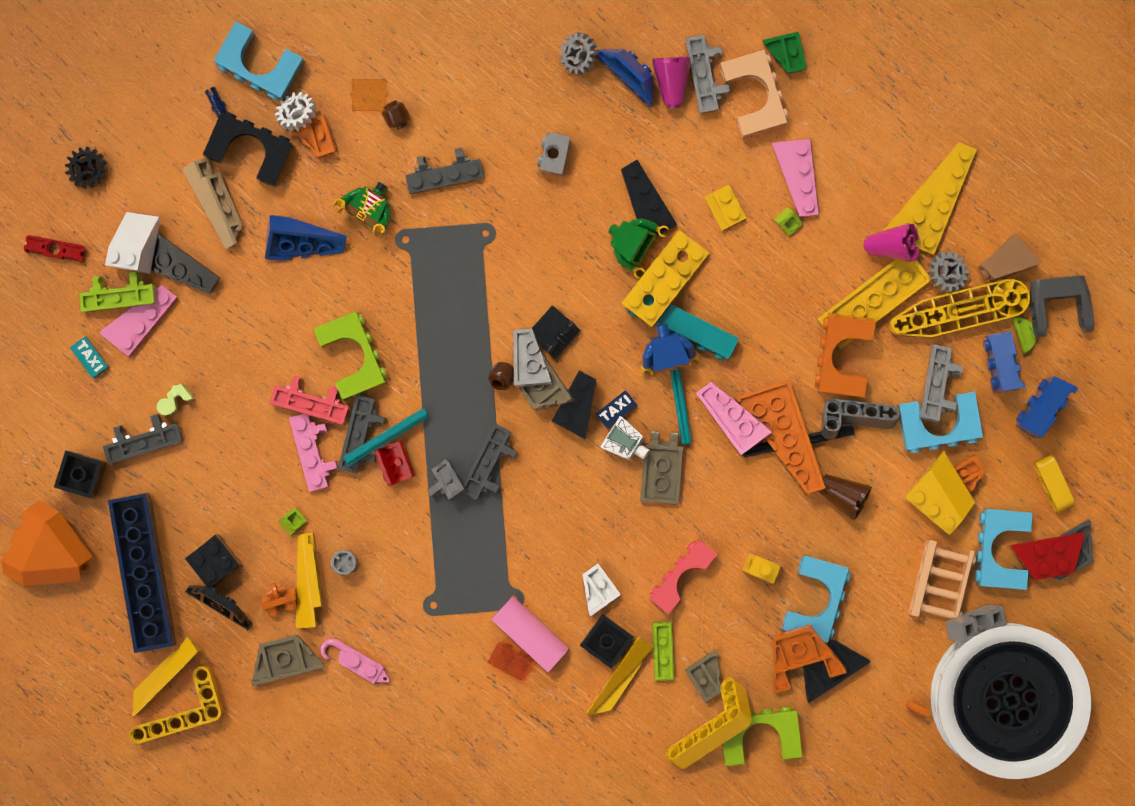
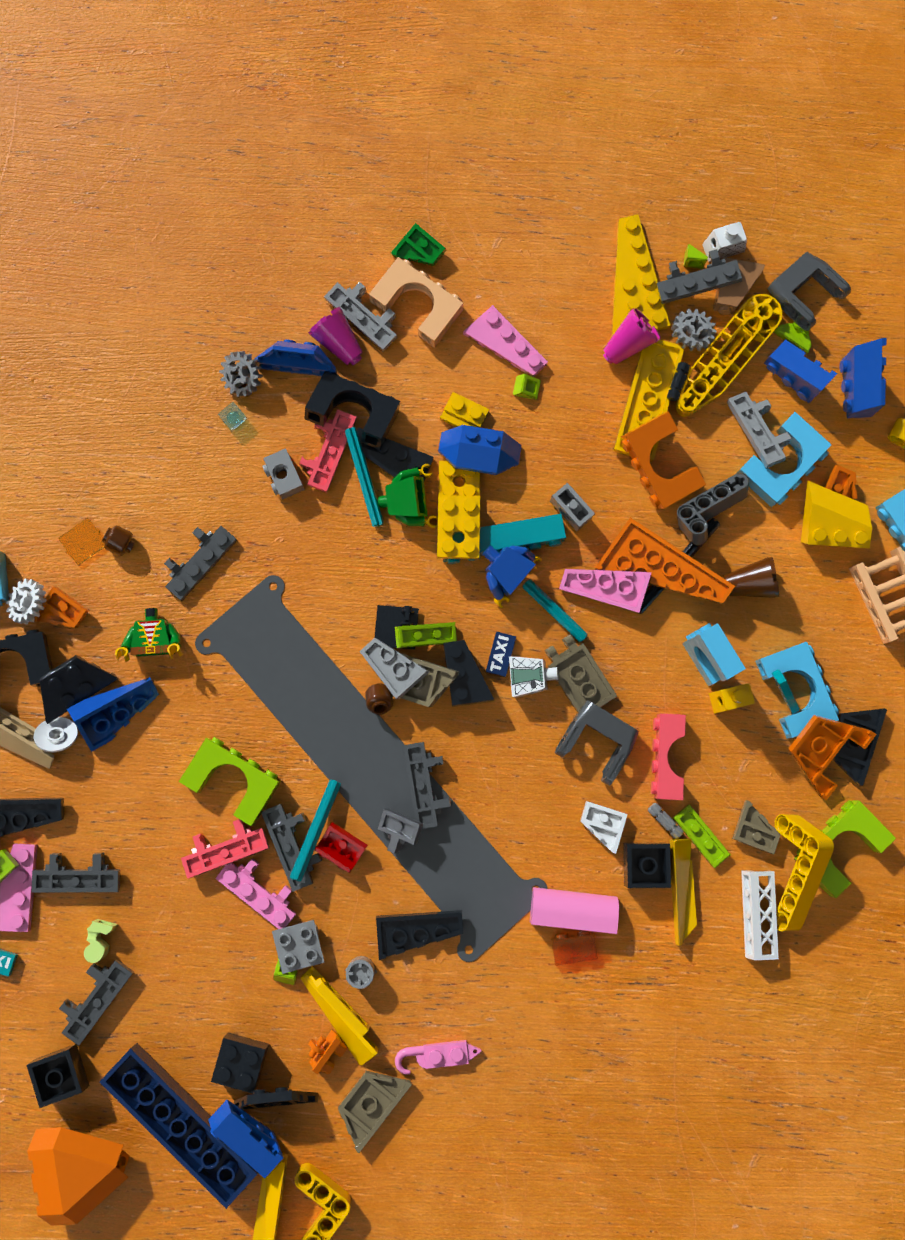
camera: 40 degrees left, 5 degrees down
(182, 615) = (246, 1137): none -> blue wedge
(200, 353) = (58, 879): none -> dark grey hinge
(249, 221) = (60, 728): none -> white dish
(285, 199) = (71, 684): none -> black wing
(313, 510) = (298, 946): none -> light grey hinge
(398, 558) = (412, 930): none -> black wing
(548, 81) = (232, 416): none -> clear light blue plate
(571, 354) = (425, 634): none -> lime tile
(590, 170) = (324, 467): none -> coral hinge
(613, 201) = (364, 477): none -> teal axle
(640, 118) = (336, 390): none -> black arch
(645, 620) = (665, 820): none -> light grey axle
(654, 519) = (608, 726): none -> dark grey connector
(655, 734) = (752, 917): none -> white fence
(714, 244) = (479, 449): none -> blue wedge
(751, 339) = (572, 507): none -> light grey brick
(768, 525) = (713, 654): none -> medium azure arch
(804, 592) = (785, 691): none -> teal tile
(905, 303) = (678, 381): none -> black axle
(969, 234) = (685, 285): none -> dark grey hinge
(992, 216) = (694, 258): none -> lime slope
(1025, 222) = (728, 241): none -> white torso

